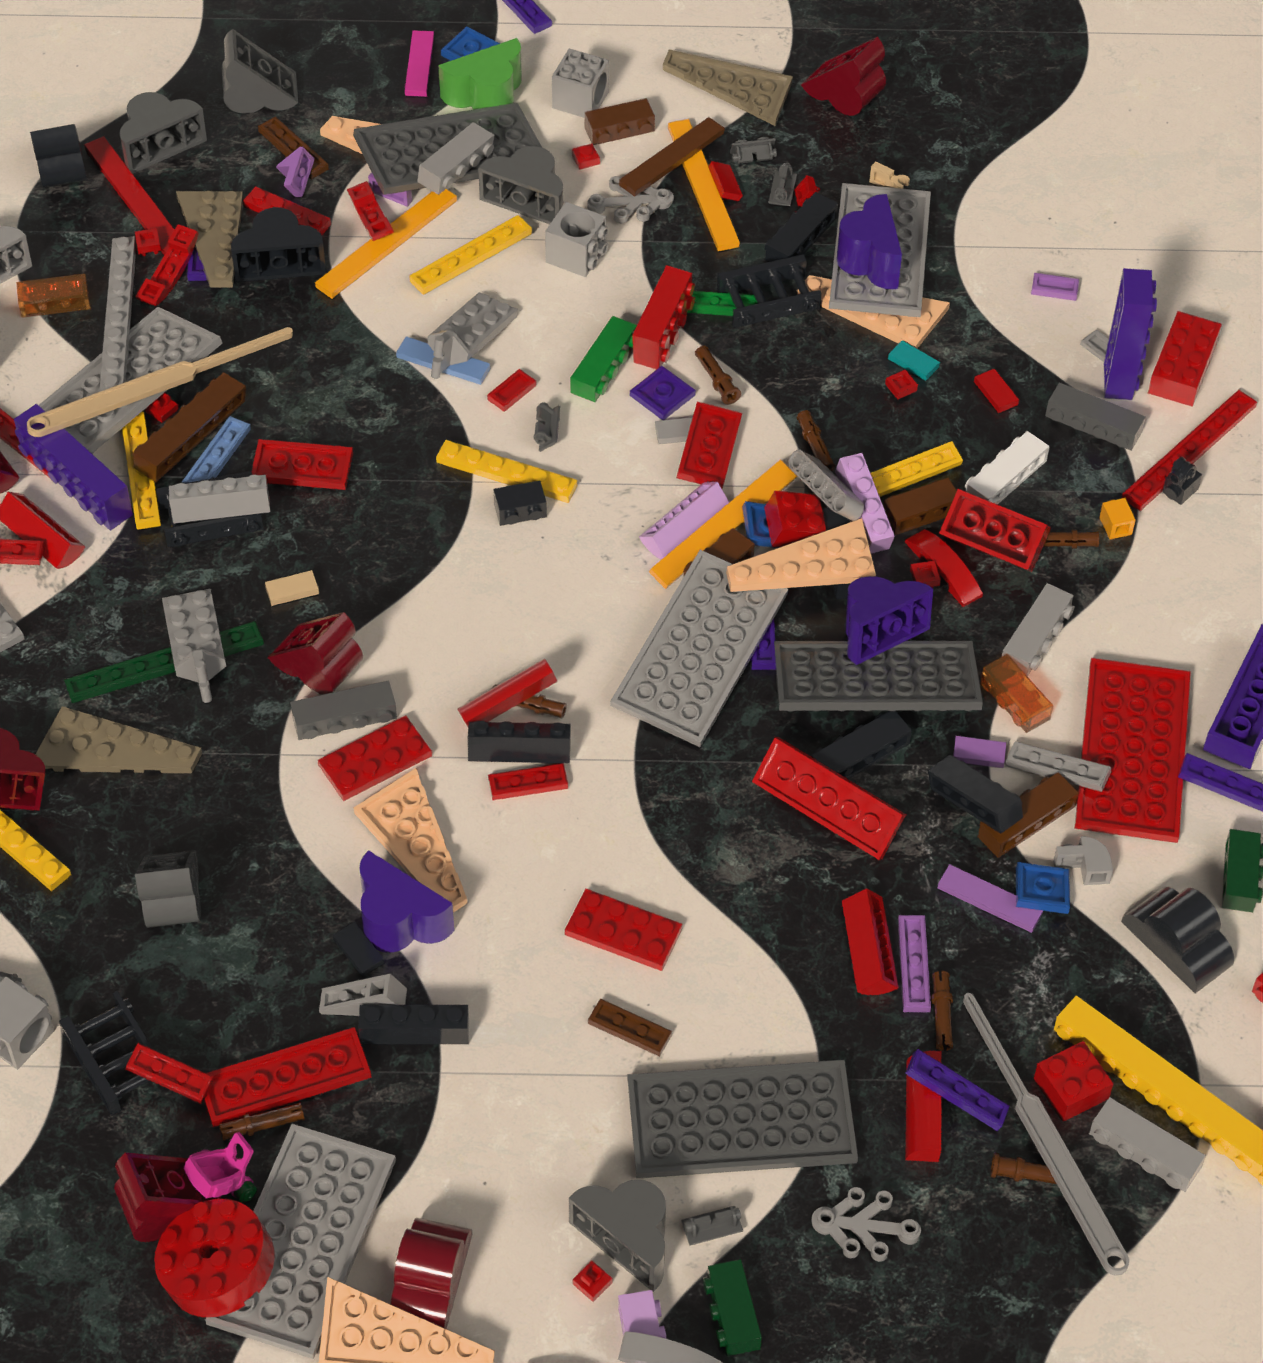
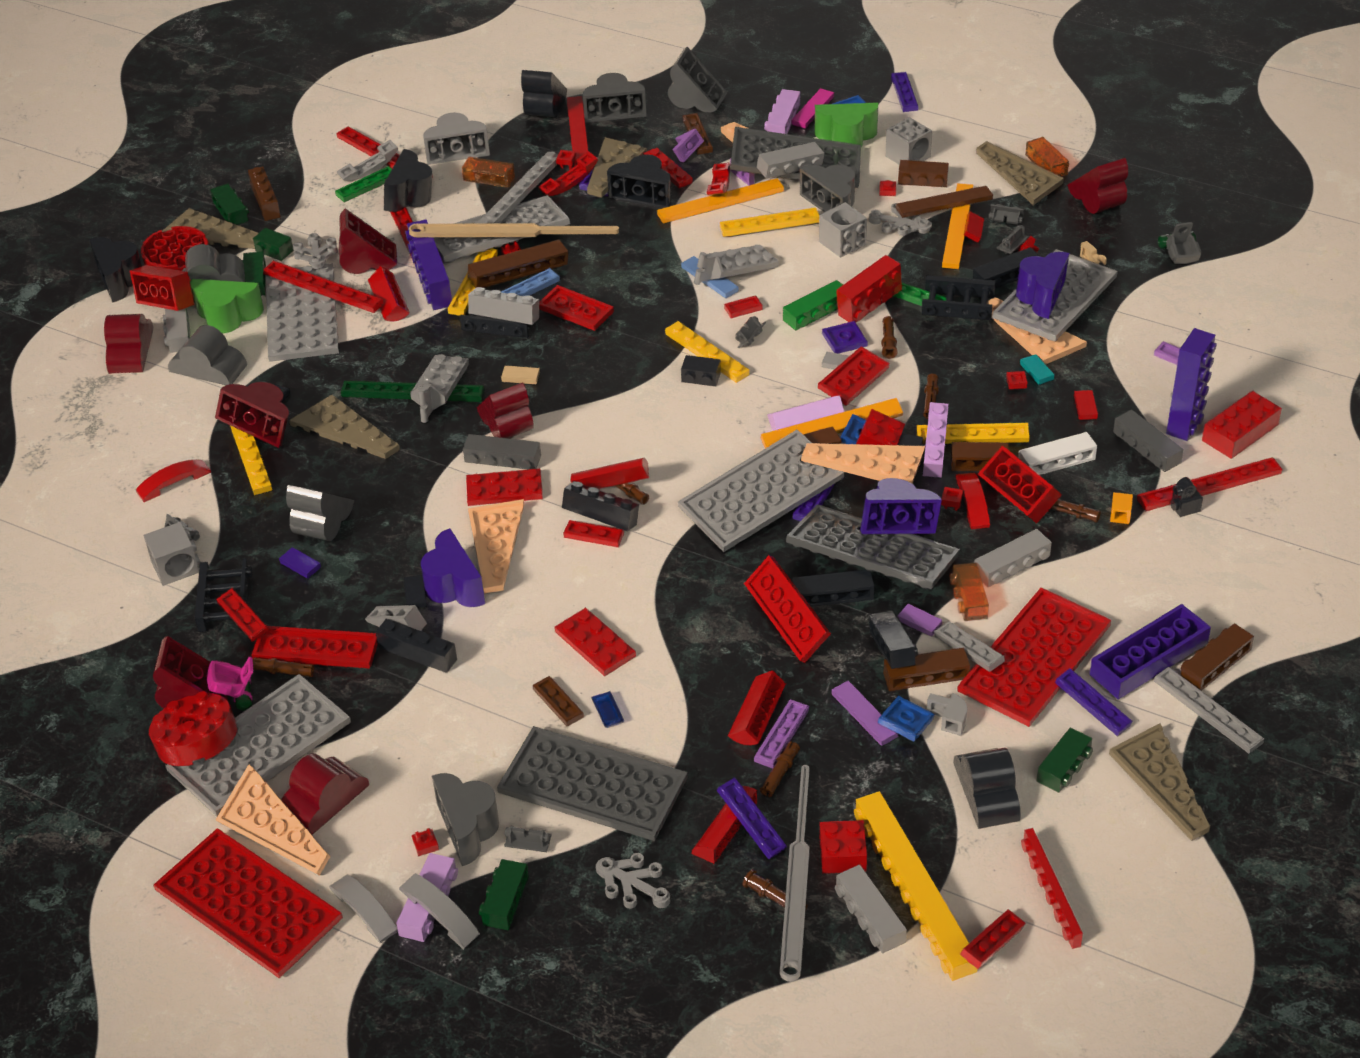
camera: 30 degrees right, 10 degrees down
(182, 966) = (300, 562): none -> dark purple tile
(389, 84) = (783, 112): none -> lavender brick
(697, 1014) = (607, 709): none -> clear blue tile
(754, 51) = (1047, 156): none -> clear orange brick
(826, 485) = (913, 419): light grey beam -> none
(983, 131) = (1181, 246): none -> dark grey piece

